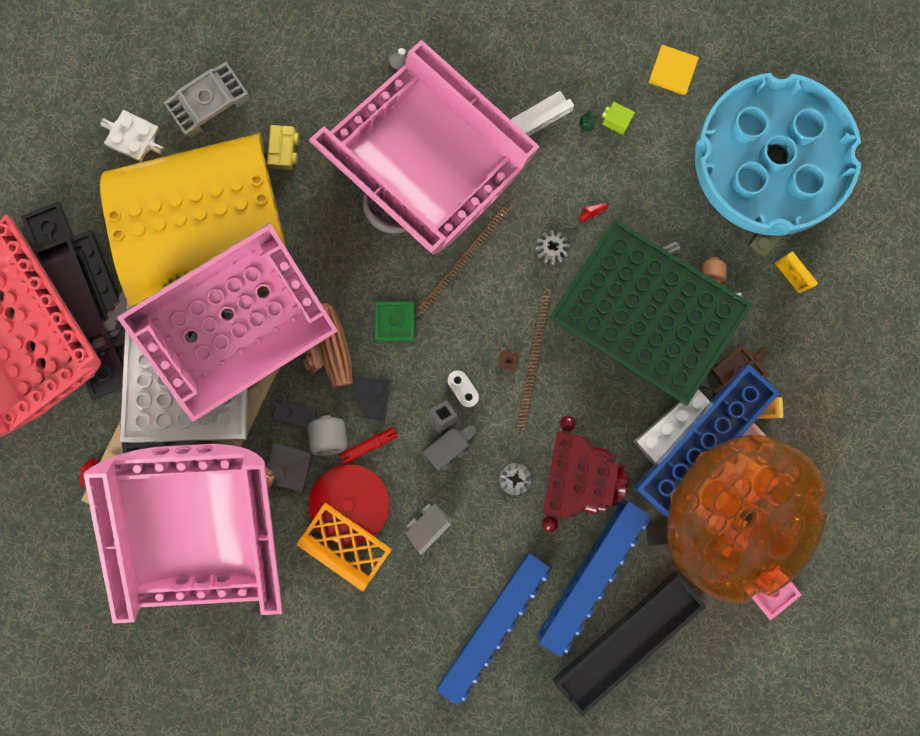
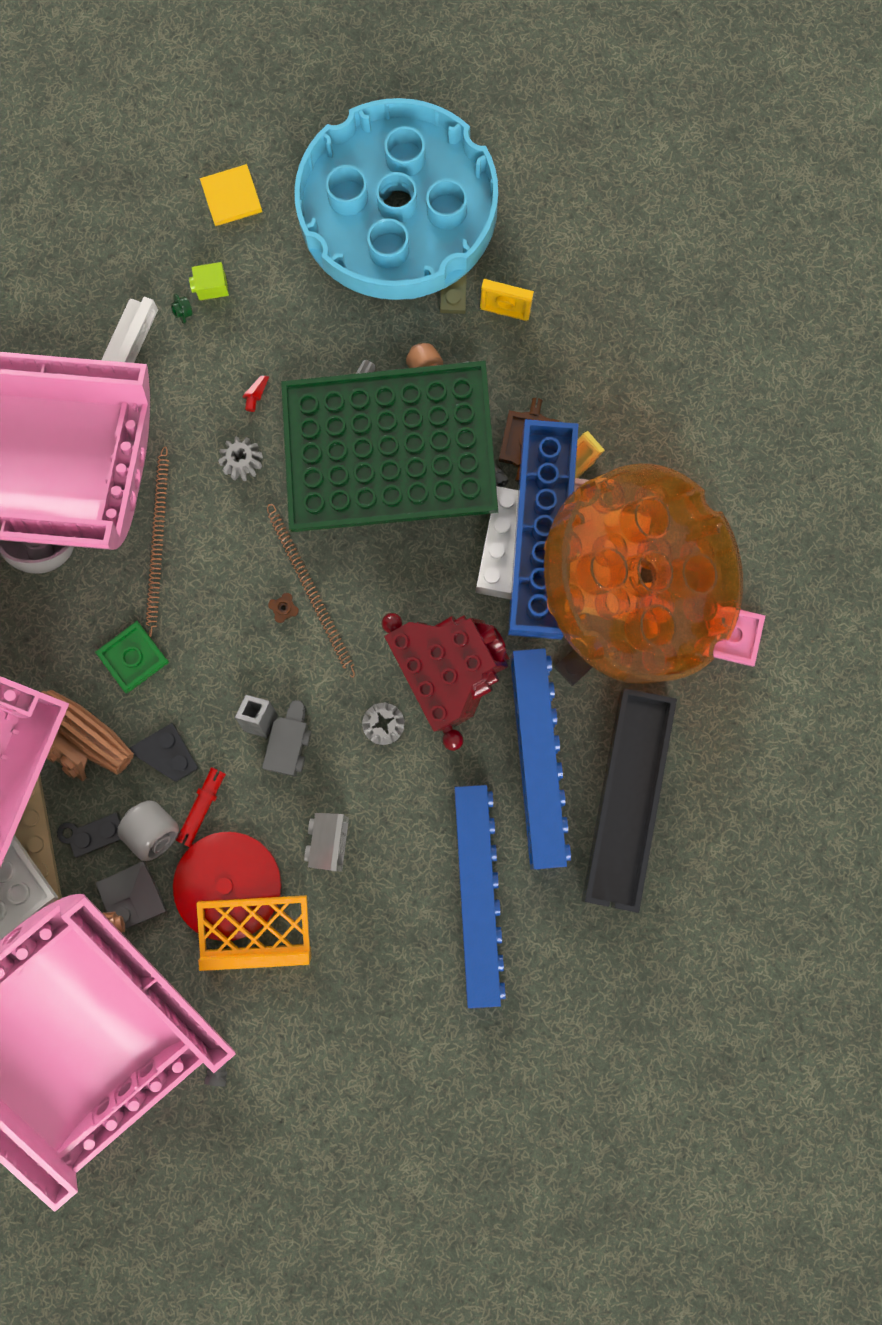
camera: 40 degrees left, 5 degrees down
(463, 388) = (256, 673): white plate -> none

